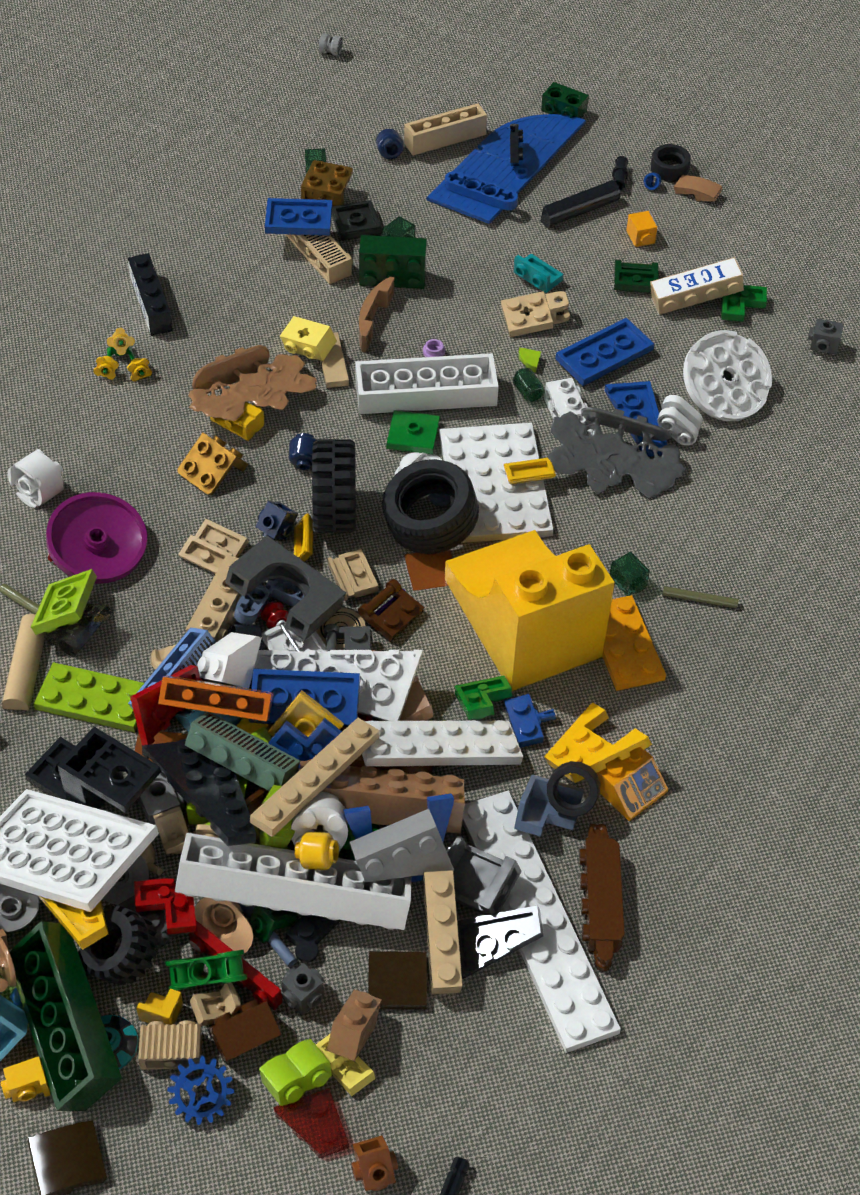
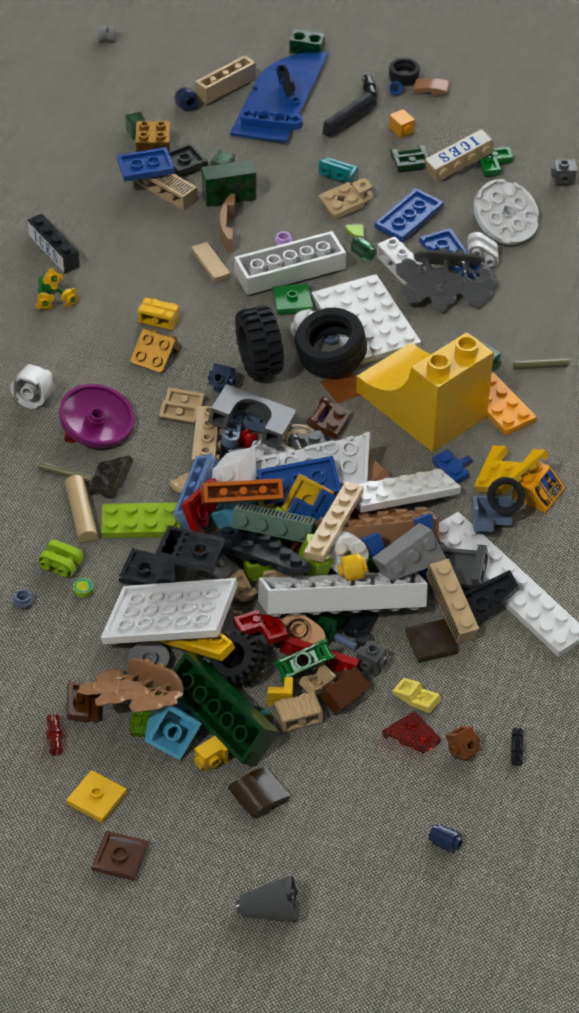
camera: 15 degrees left, 5 degrees down
(64, 602) = (95, 461): lime plate -> none
(213, 1095) = (334, 721): blue gear -> none
(252, 384) = (169, 289): medium nougat plant -> none
(295, 1072) = (389, 705): lime brick -> none
(301, 451) = (219, 327): dark blue head -> none
(303, 538) = (244, 381): yellow tile -> none
(308, 338) = (189, 249): light yellow brick -> none
(353, 574) = (292, 398): tan plate -> none
(354, 1025) = (417, 667): medium nougat brick -> none
(477, 696) = (416, 458): green plate -> none
(529, 471) = (390, 305): yellow tile -> none
(602, 896) = (547, 558): reddish brown hinge -> none

